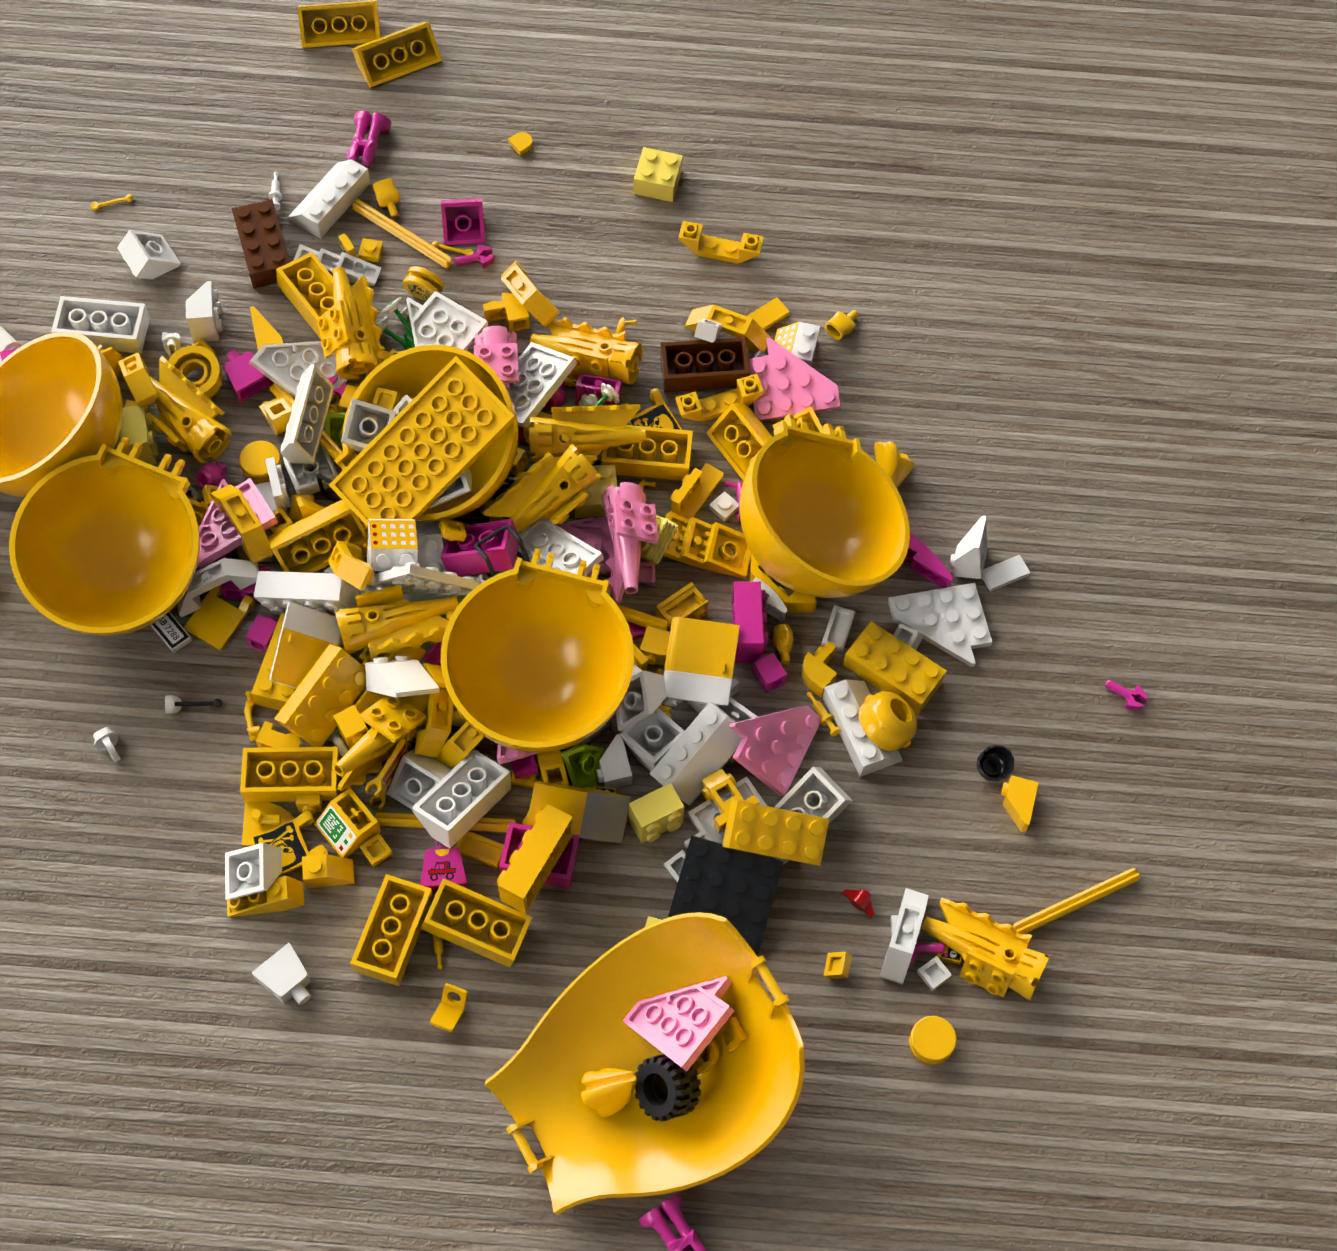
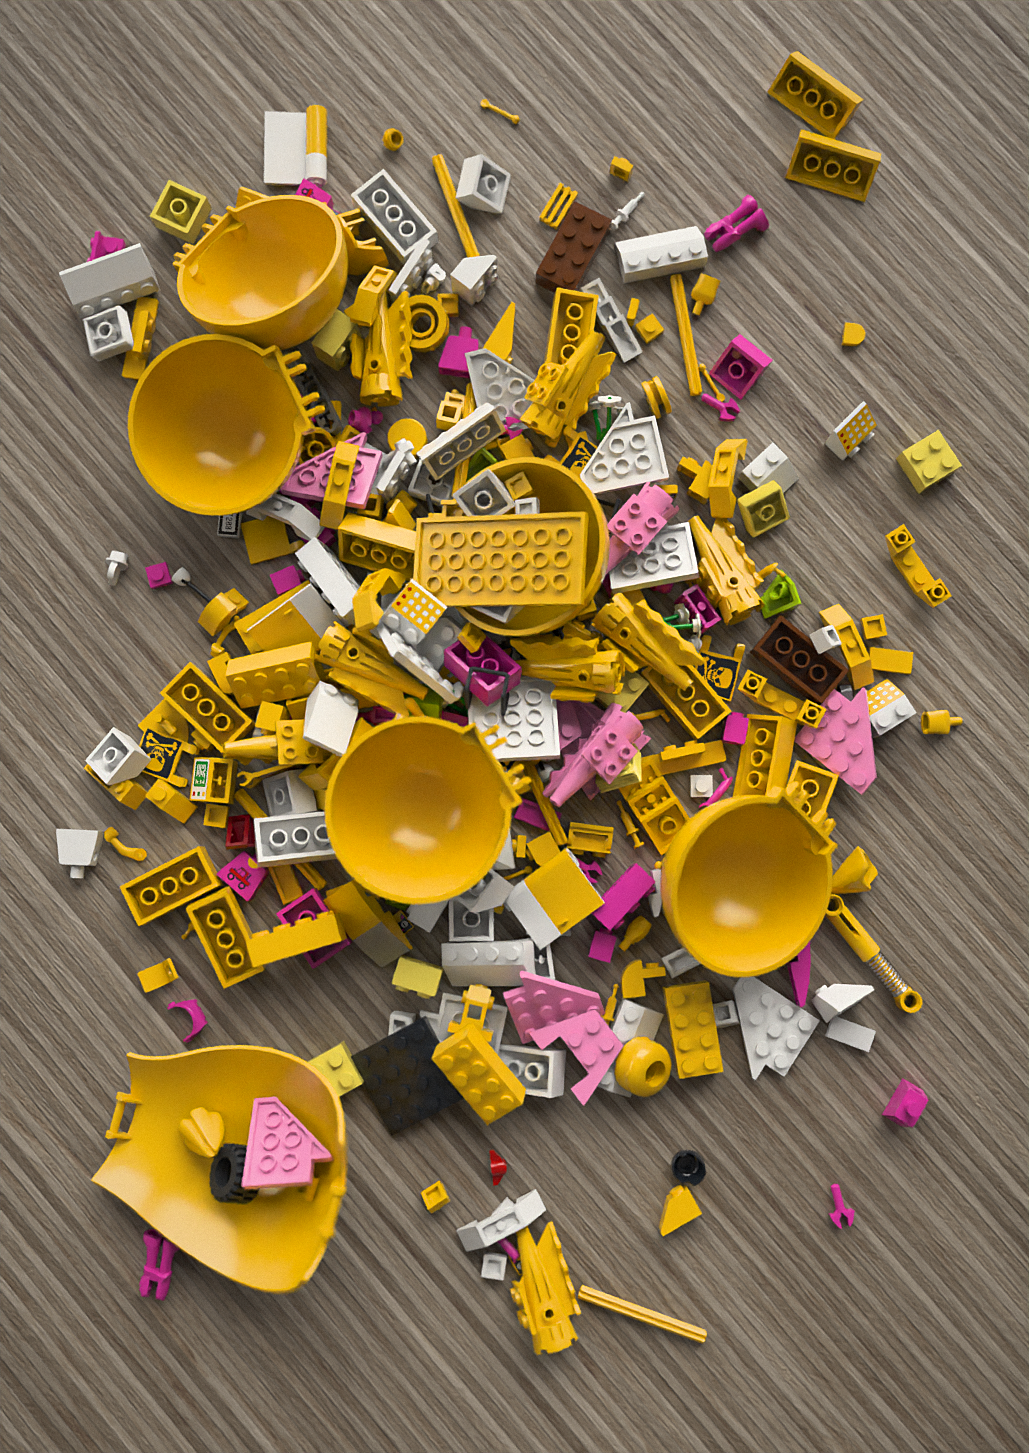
camera: 50 degrees right, 20 degrees up
(45, 278) = (392, 139): none -> yellow plate
(138, 285) = (454, 206): none -> yellow axle
(151, 342) = (412, 272): none -> white plate
(151, 720) = (159, 575): none -> dark pink plate
(217, 213) = (566, 192): none -> yellow tile
(231, 698) = (221, 610): none -> yellow brick
(244, 167) = (621, 168): none -> yellow plate
(261, 477) = (404, 447): none -> white piece
(302, 945) = (135, 853): none -> yellow piece
(411, 845) = (240, 832): none -> dark red slope
(514, 1010) = (196, 1013): none -> dark pink helmet
(556, 270) = (769, 466): none -> white slope
(575, 290) = (763, 508): none -> light yellow brick
(586, 197) = (852, 432): none -> slope
(650, 334) = (780, 597): none -> lime slope
(705, 577) = (630, 826): none -> yellow piece
(708, 447) = (734, 729): none -> dark pink brick
(733, 302) = (873, 627): none -> yellow plate
(831, 735) = (590, 1042): none -> bright pink wing
(932, 1040) = (445, 1308): yellow head -> none
(956, 507) = (869, 952): none -> yellow piece
(1092, 576) = (906, 1104): none -> dark pink torso

